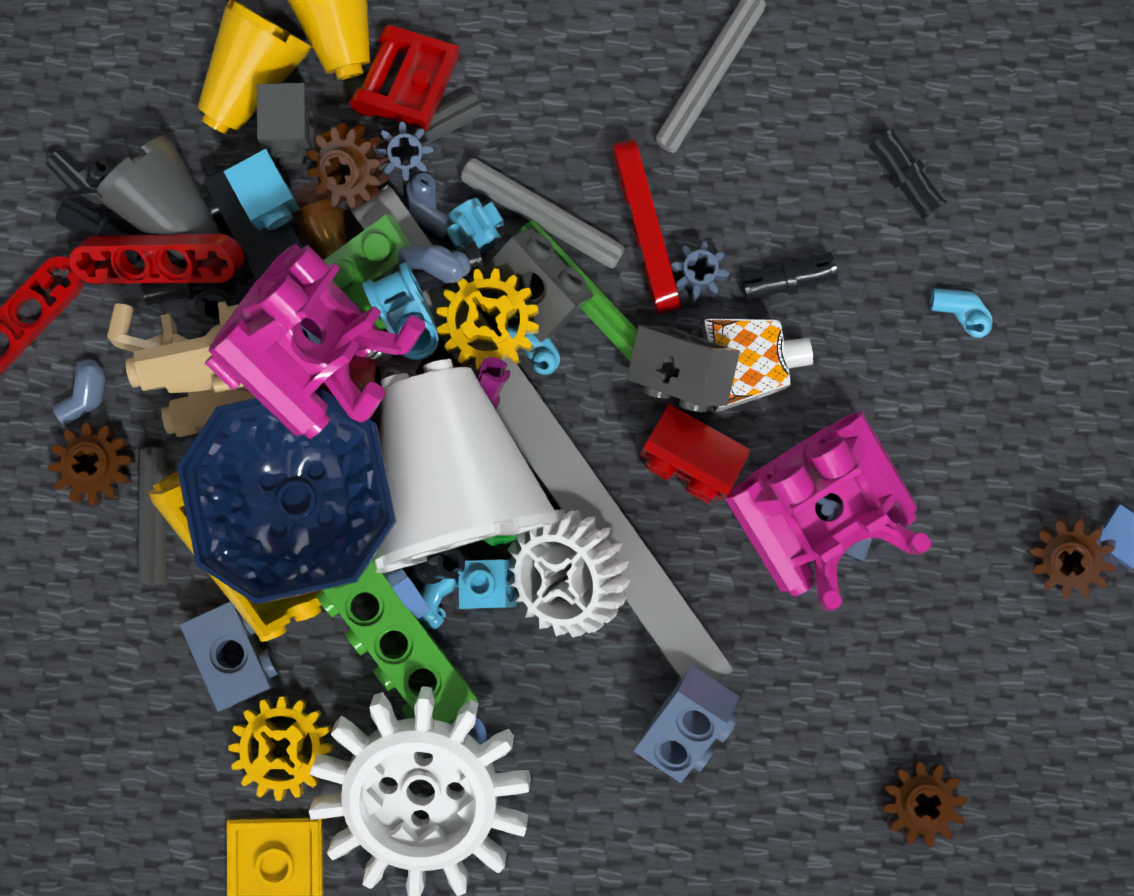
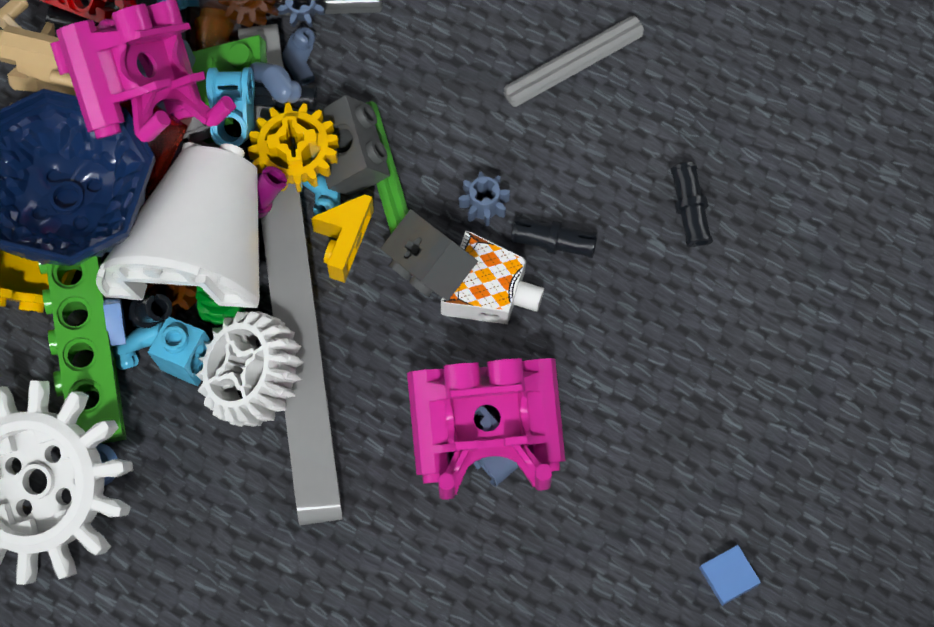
camera: 25 degrees right, 15 degrees down
(475, 223) = (330, 81): medium azure gear -> none
(543, 212) = (387, 102): light grey axle -> none
(580, 368) = (348, 226): none -> yellow slope
(646, 226) = (459, 147): red beam -> none
(688, 724) = (278, 535): sand blue brick -> none
(694, 454) = (400, 328): red slope -> none
(966, 307) = (687, 327): medium azure arm -> none
(1066, 540) = (688, 569): reddish brown gear -> none

